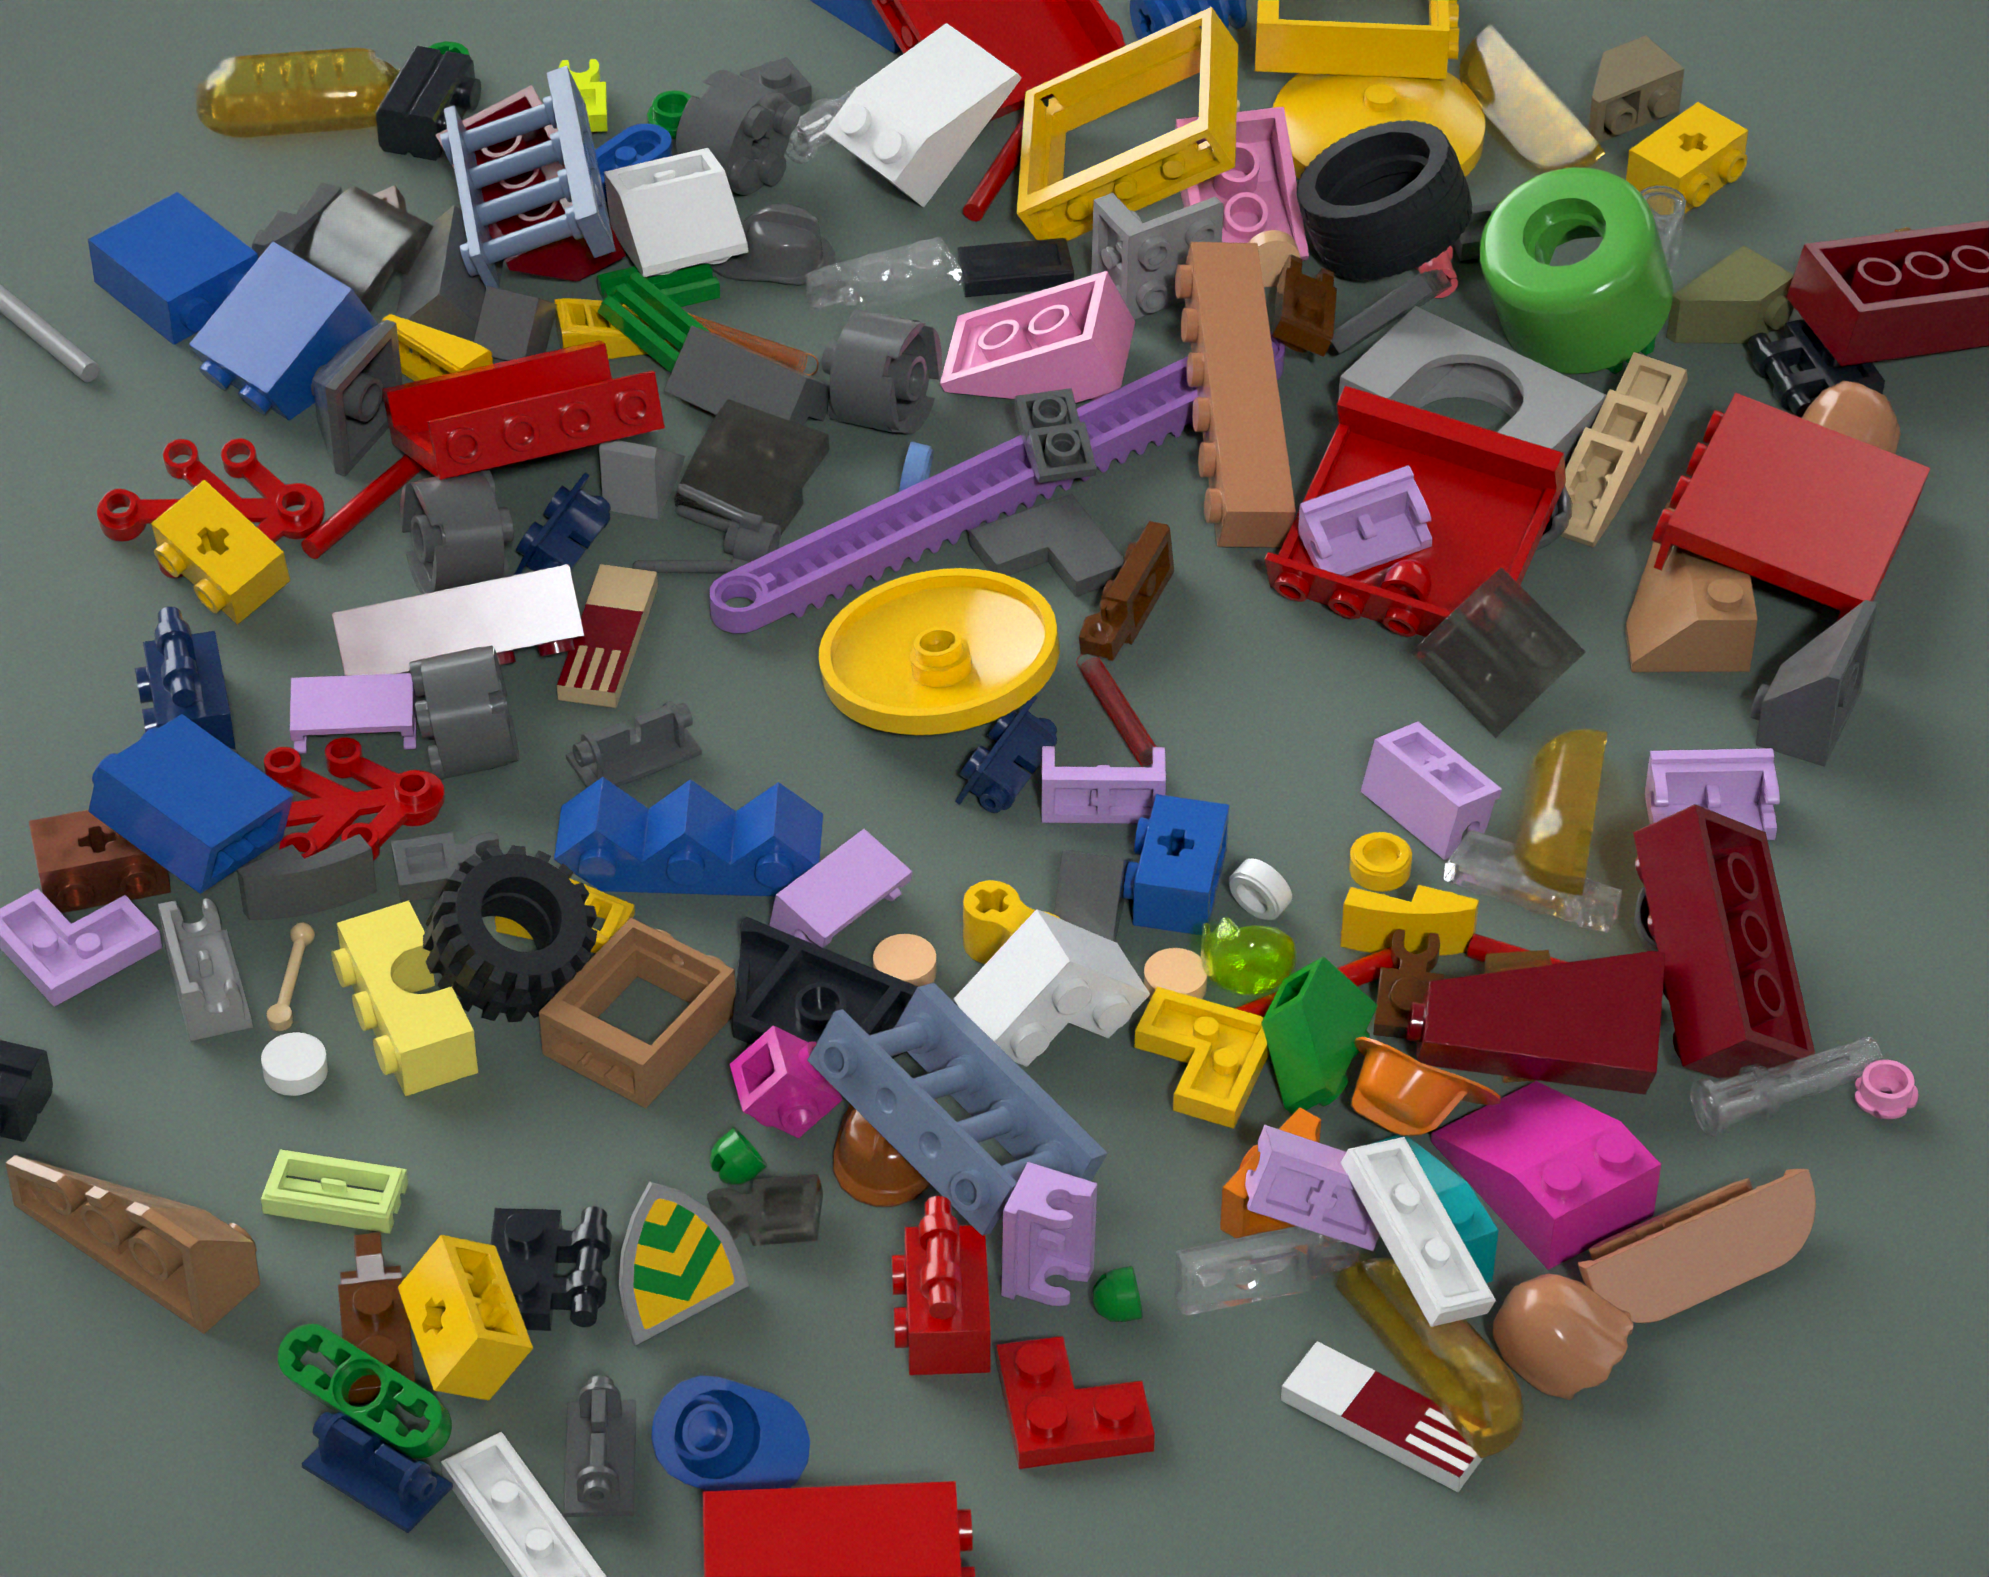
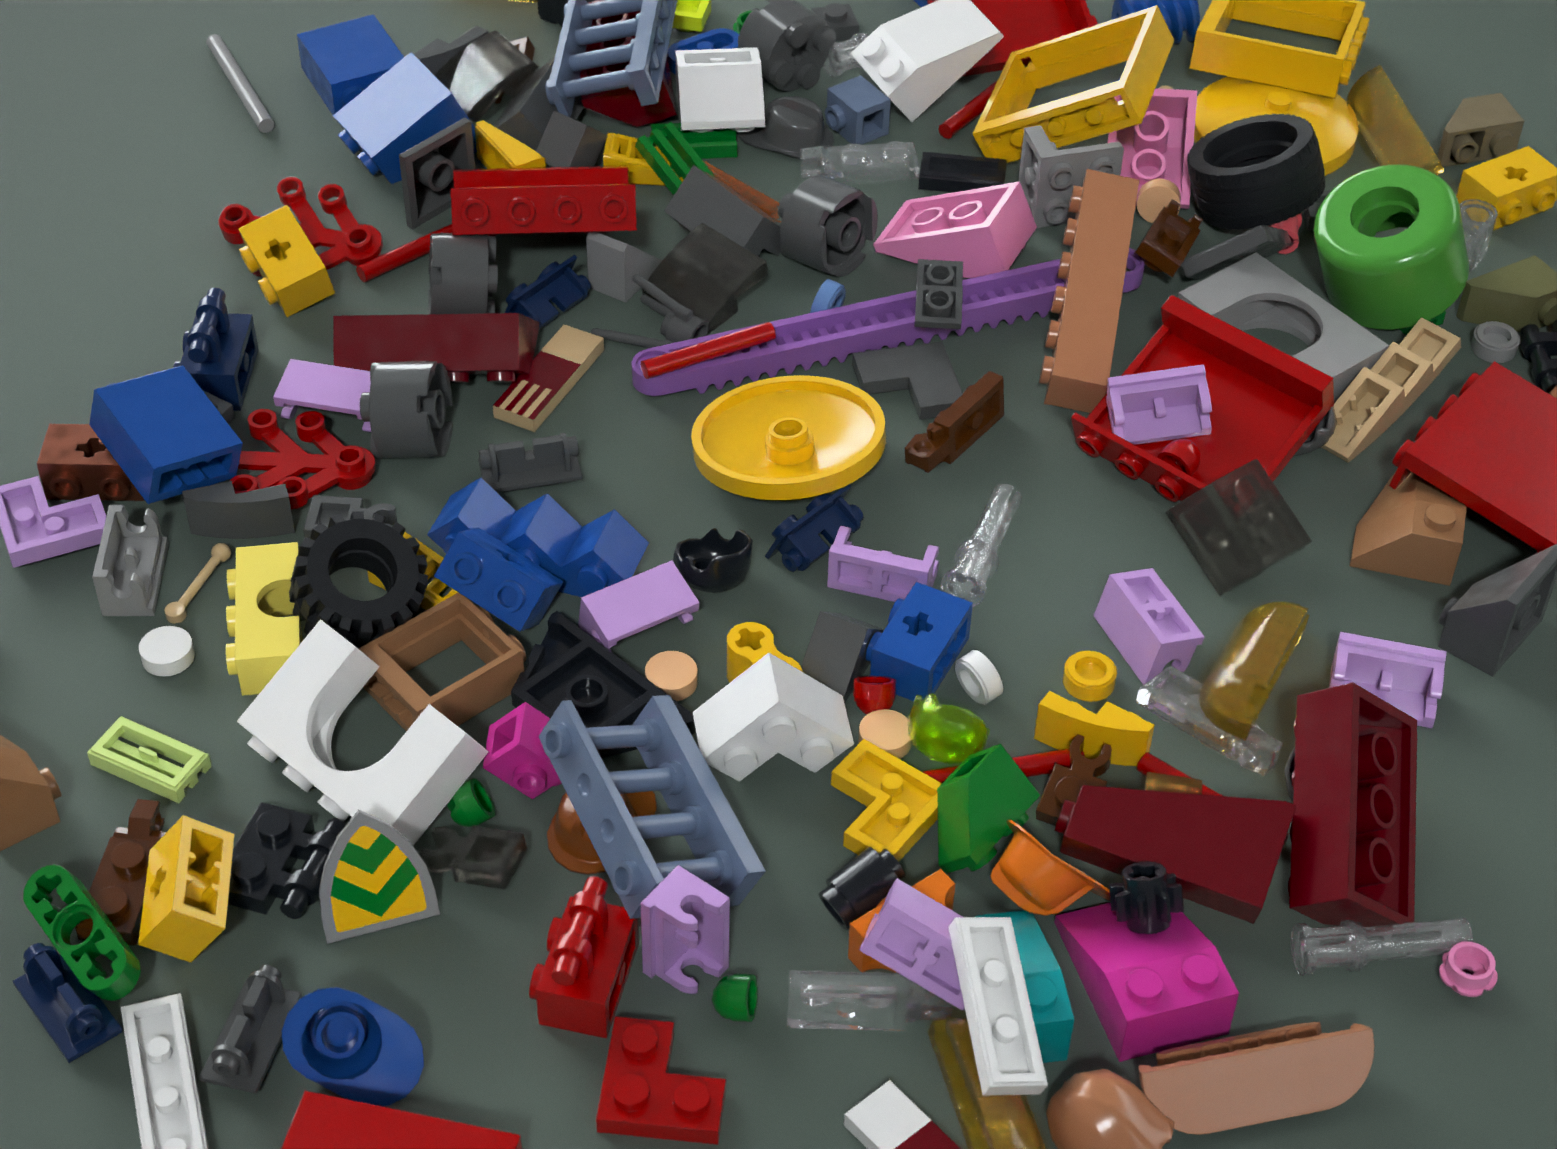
camera: 15 degrees right, 0 degrees up
(500, 1102) = (297, 722): none -> white arch
(669, 893) = (498, 578): none -> blue brick
(800, 563) = (708, 350): none -> red bar
(857, 207) = (858, 111): none -> sand blue brick
(908, 820) = (714, 562): none -> black hair
(1139, 726) = (911, 508): red piece -> none
(1147, 933) = (874, 693): none -> red hinge
(1208, 750) = (978, 557): none -> clear pin
(1215, 1147) = (860, 885): none -> black brick
(1532, 1087) = (1146, 897): none -> black gear
(1721, 363) = (1495, 342): none -> light grey tile

